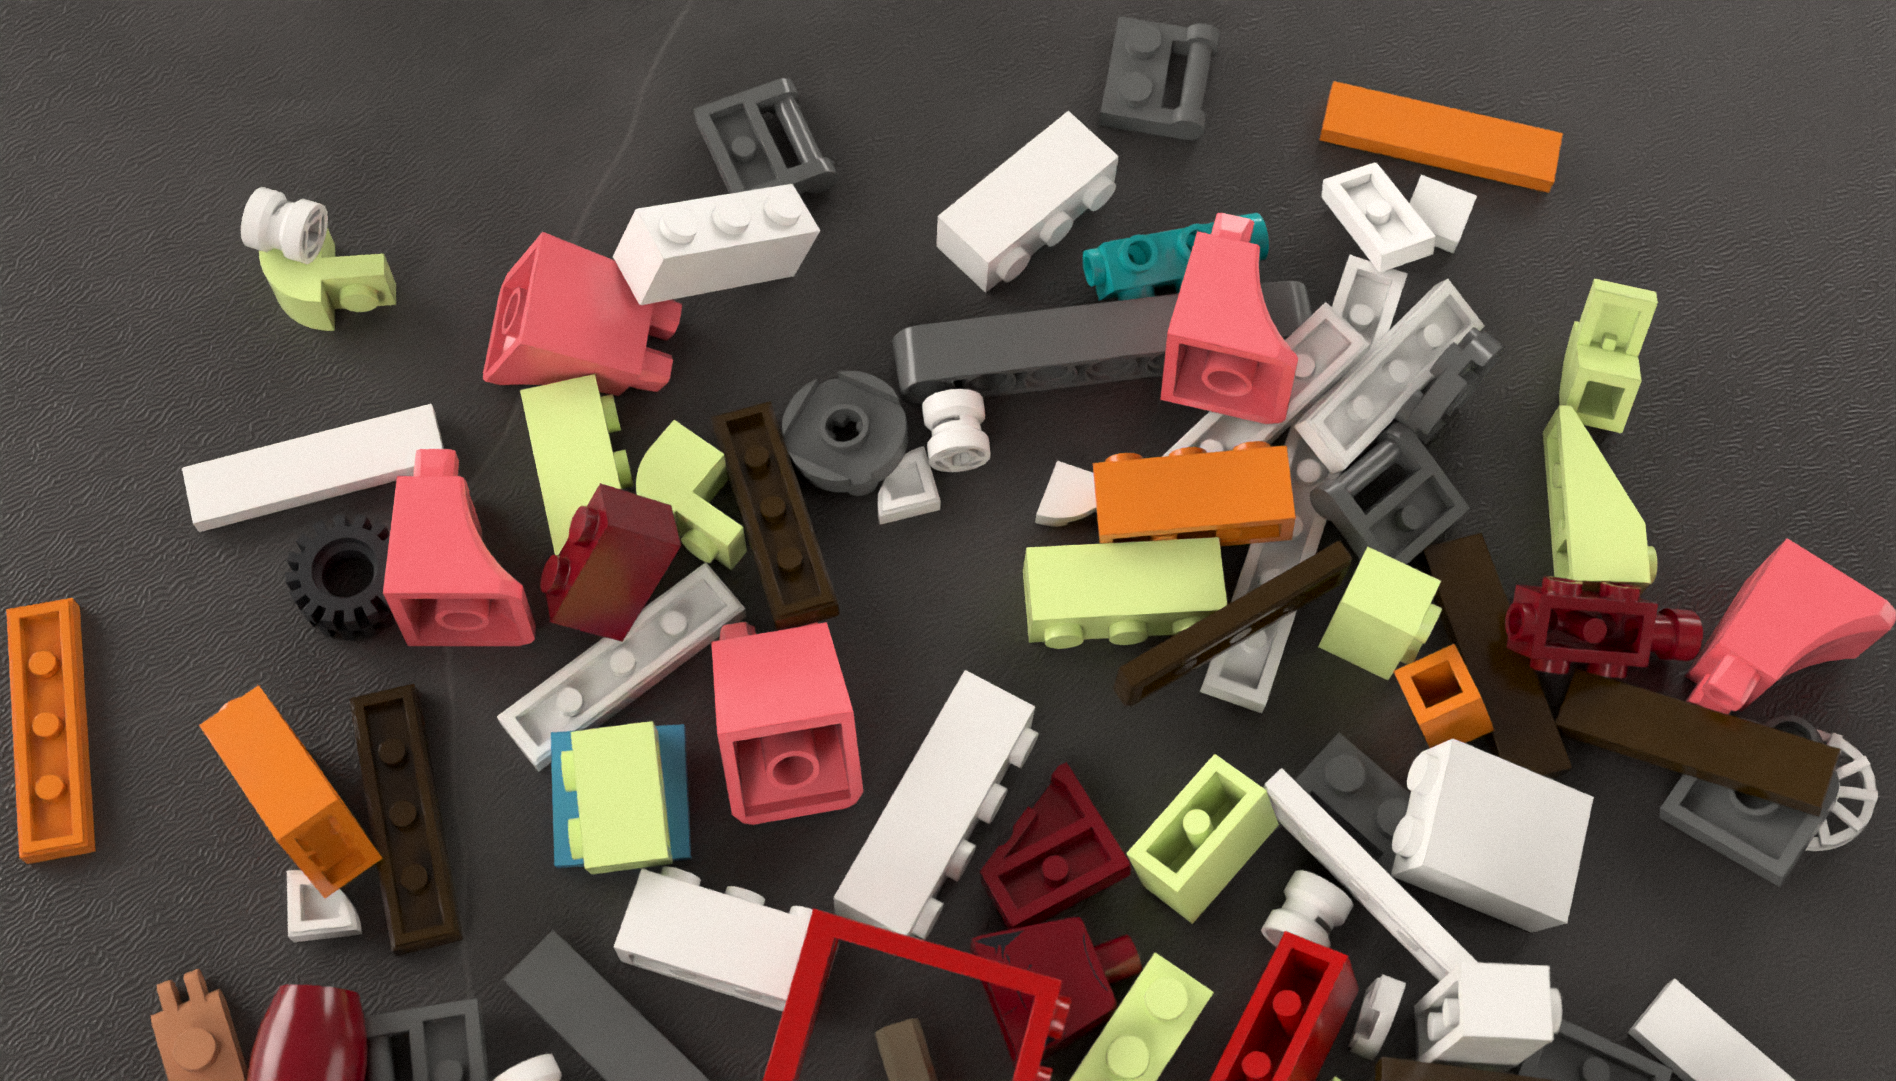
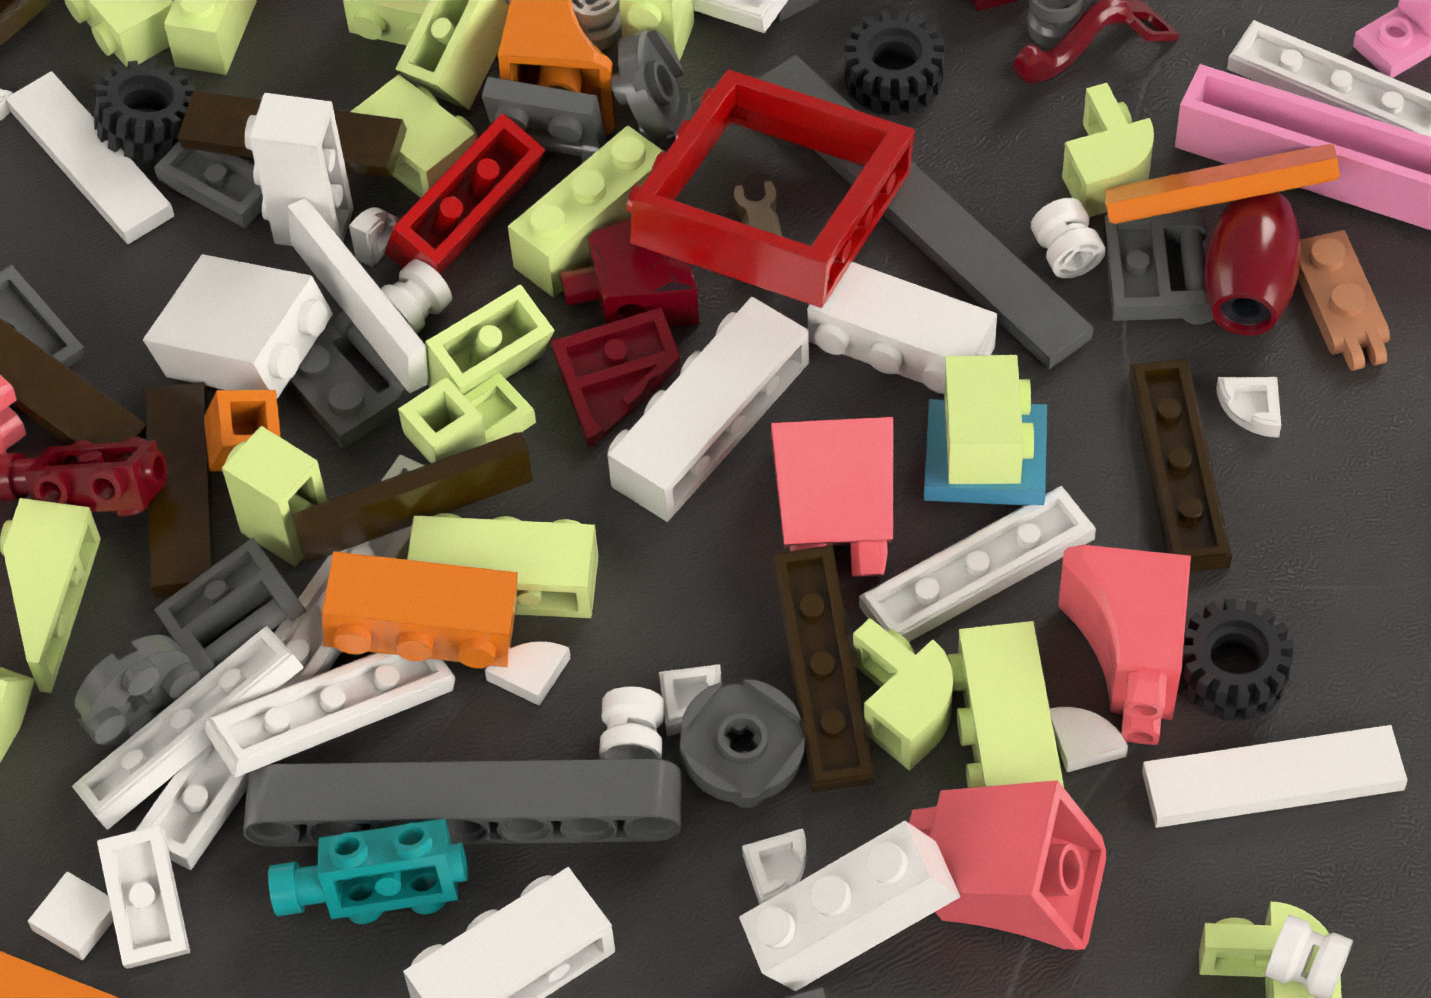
camera: 165 degrees left, 10 degrees down
(290, 792) = (1274, 443): orange window -> none
(505, 485) = (1085, 738): none -> white tile
(610, 562) = (979, 593): dark red brick -> none
(798, 330) = (775, 863): none -> white tile
(1210, 720) = (449, 423): none -> yellowish green brick
(1221, 337) = (358, 722): coral hips -> none

